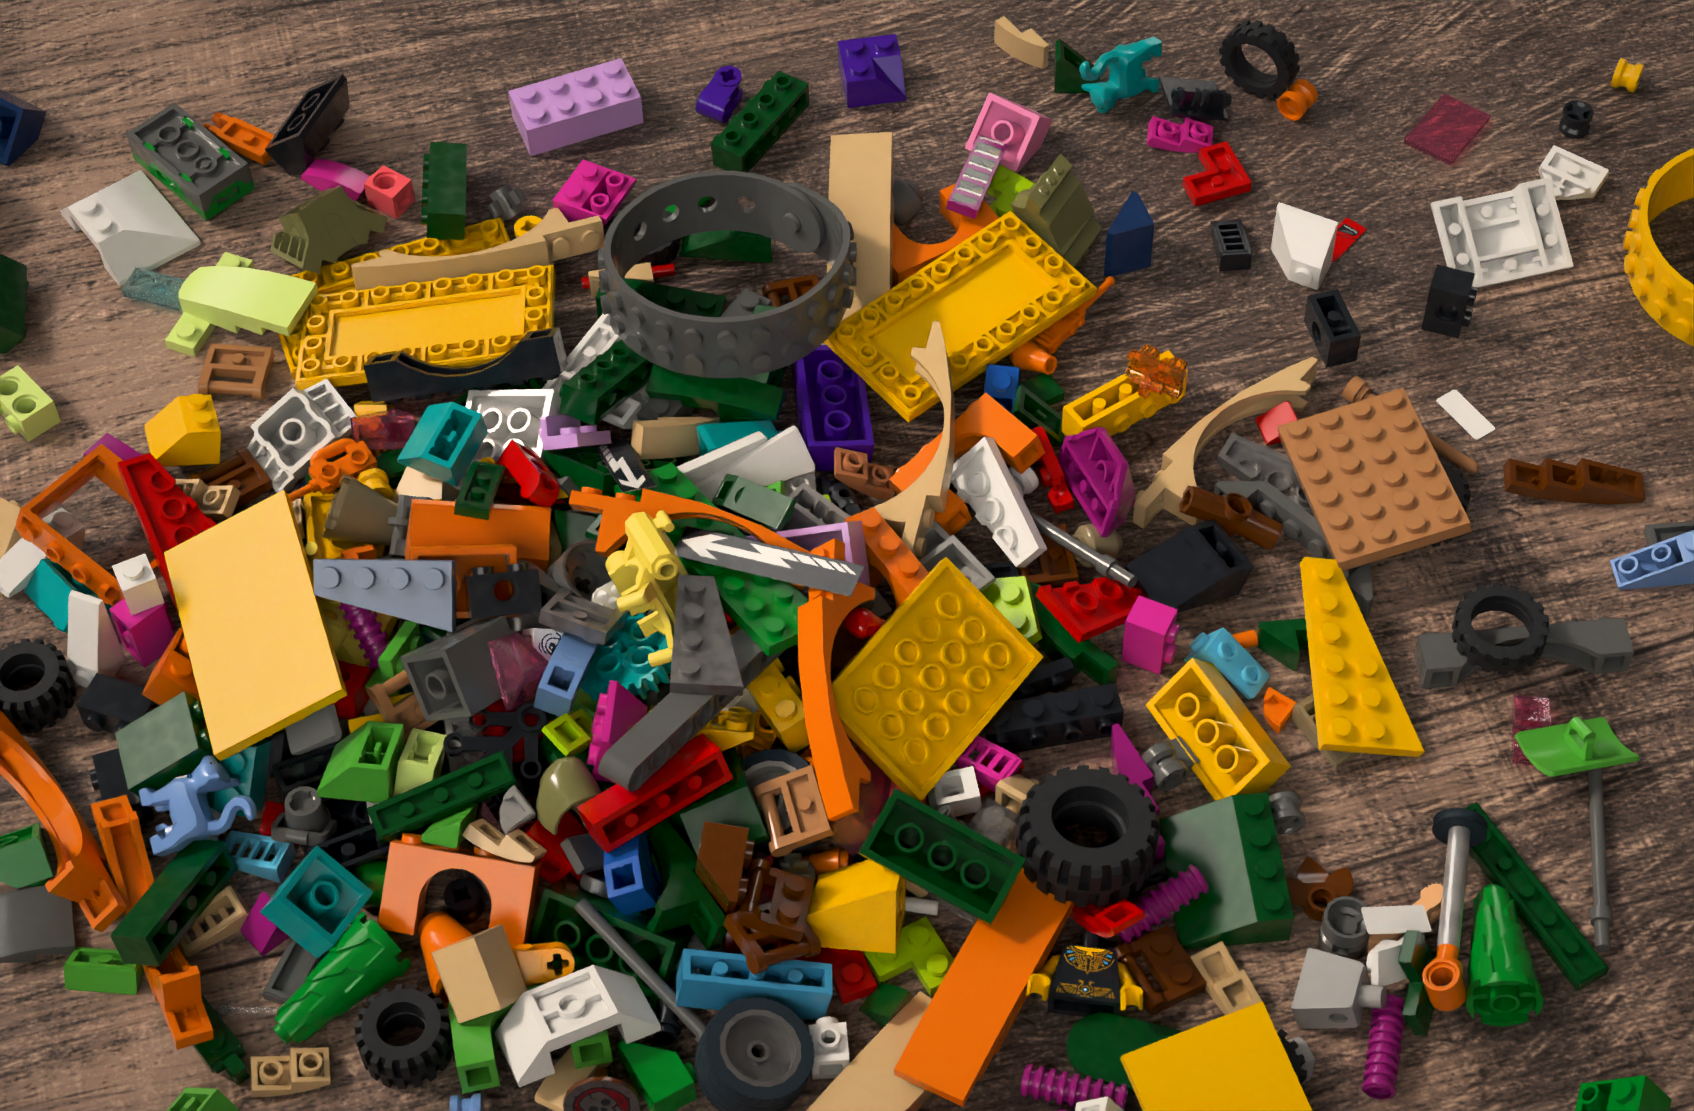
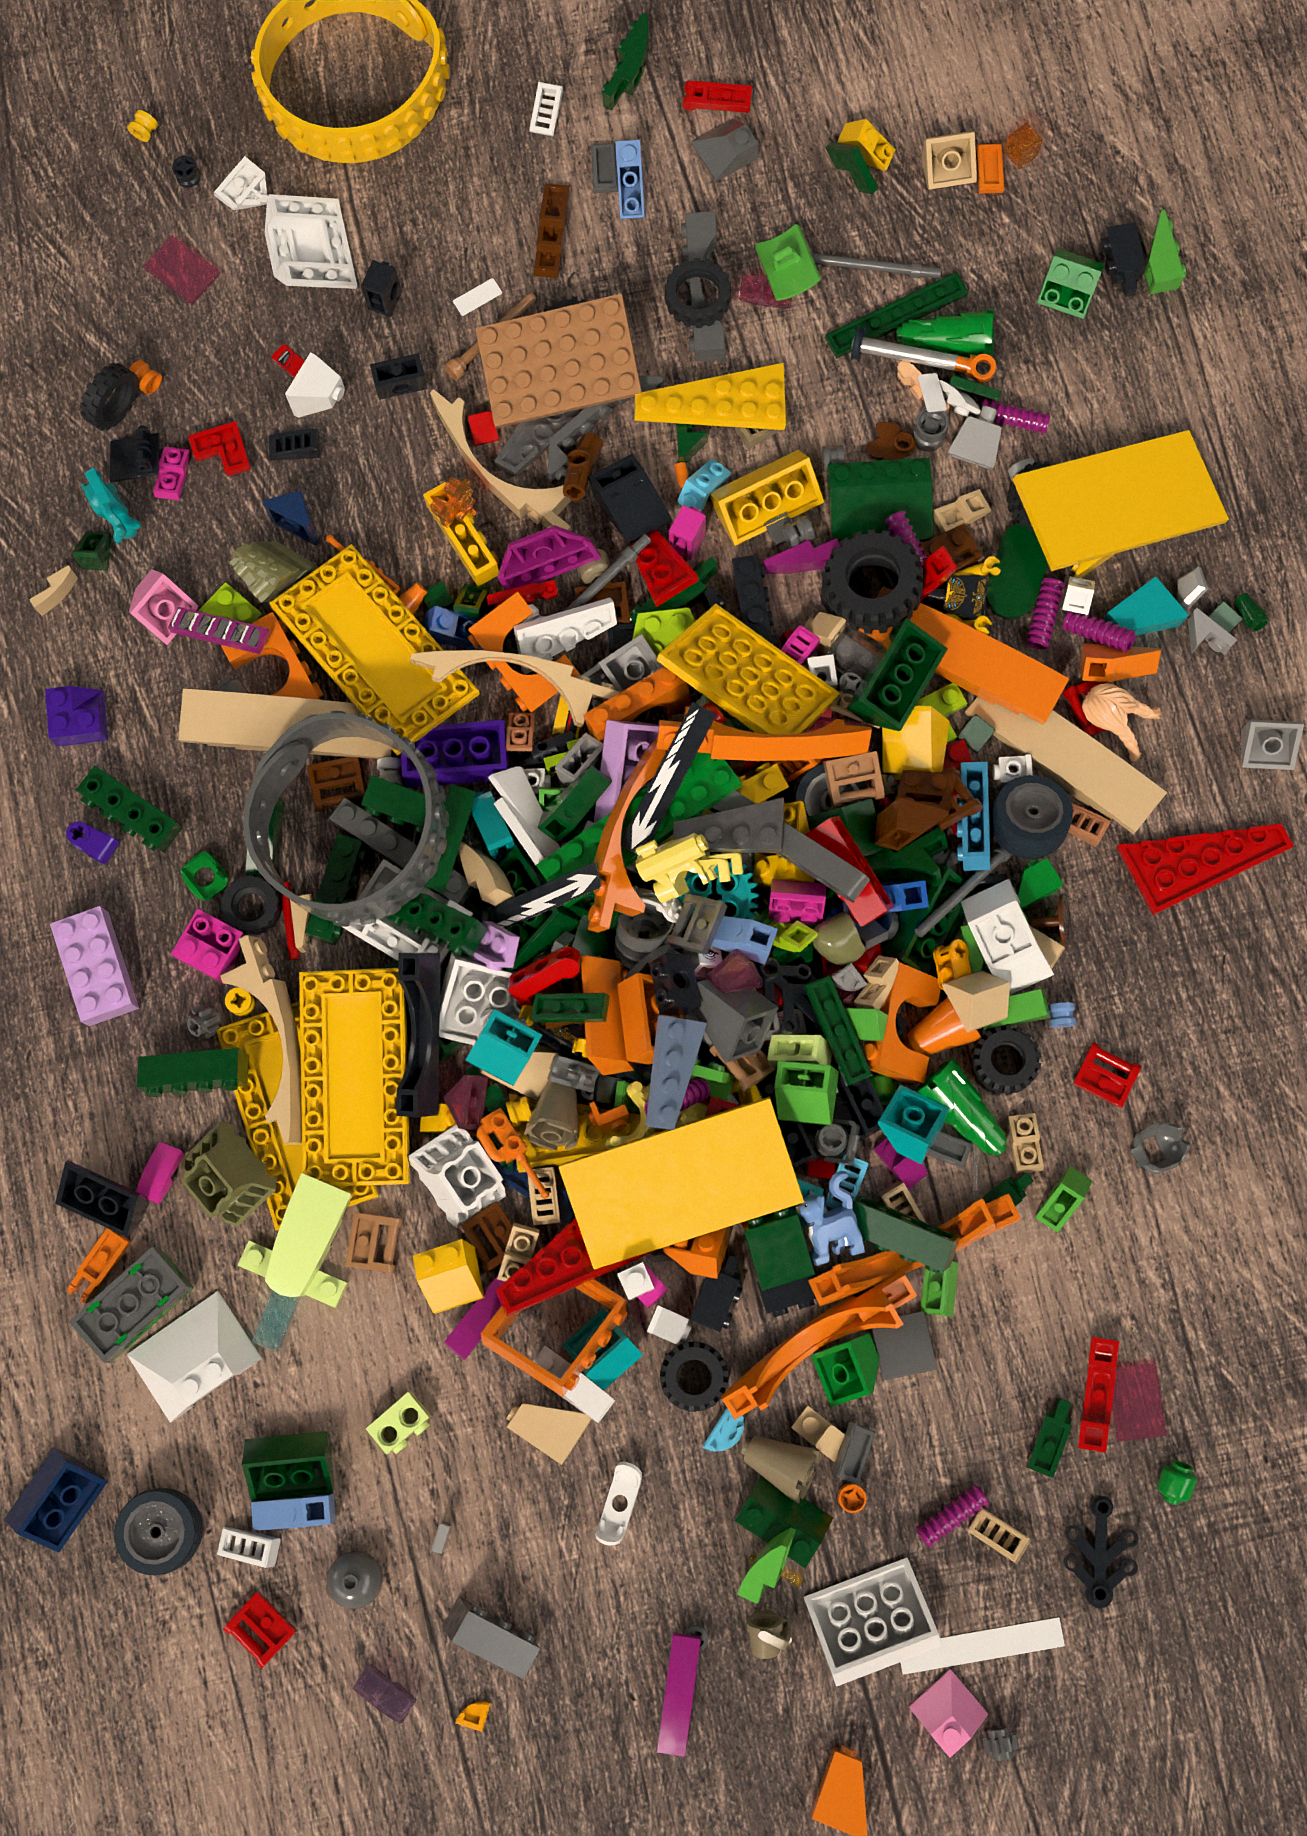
camera: 85 degrees left, 25 degrees up
(389, 192) = (191, 1123): coral brick -> none
(1277, 709) = (741, 456): orange tile -> none

